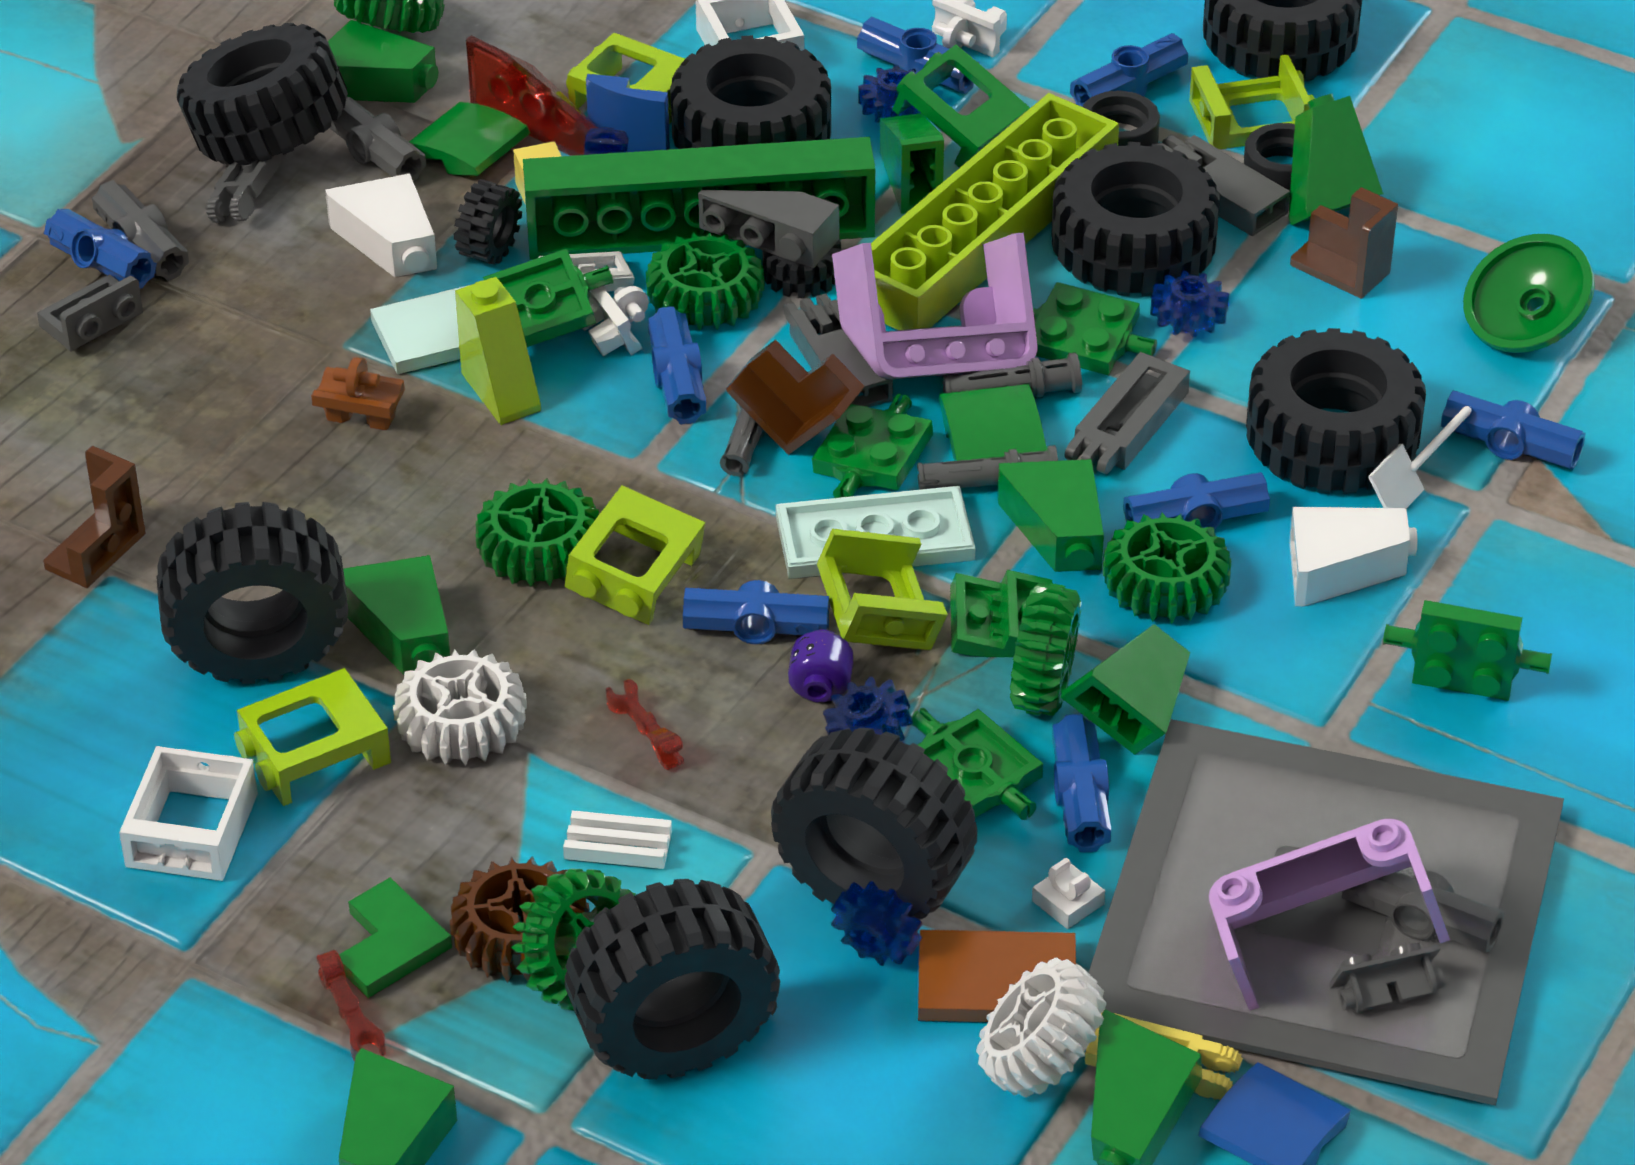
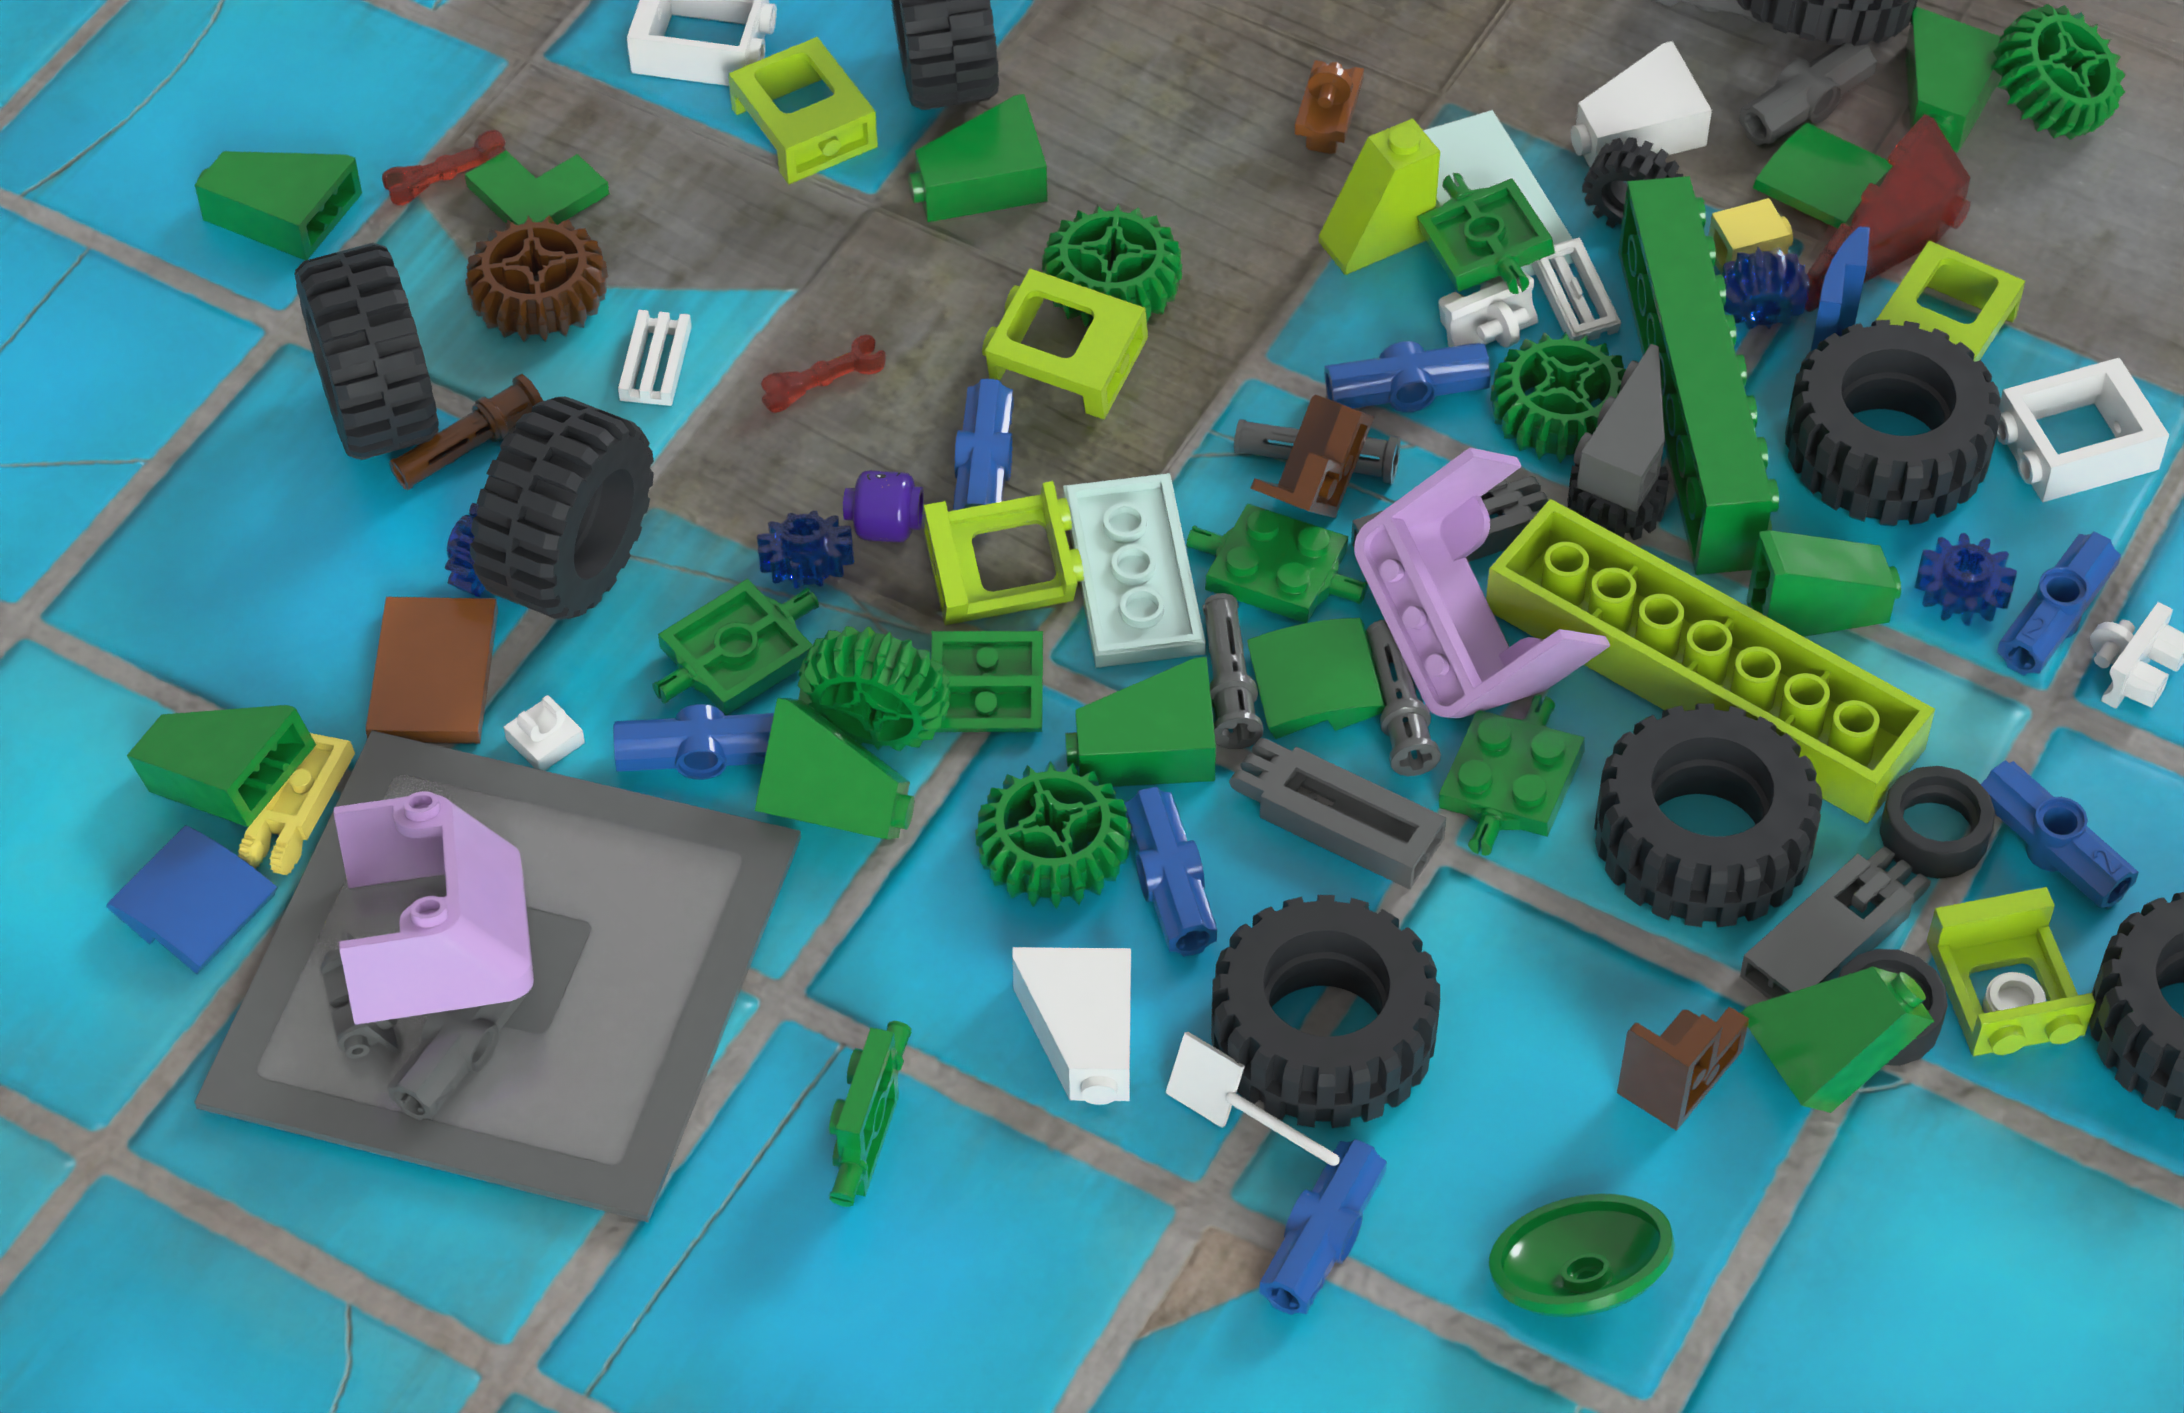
camera: 90 degrees right, 10 degrees up
(460, 707) = (855, 216): white gear -> none
(554, 927) = (467, 302): green gear -> none
(969, 131) = (1905, 665): green window -> none
(1041, 1027) = (302, 670): white gear -> none
(1189, 304) = (1557, 880): clear blue gear -> none
(1266, 109) = (2012, 991): none -> white tile

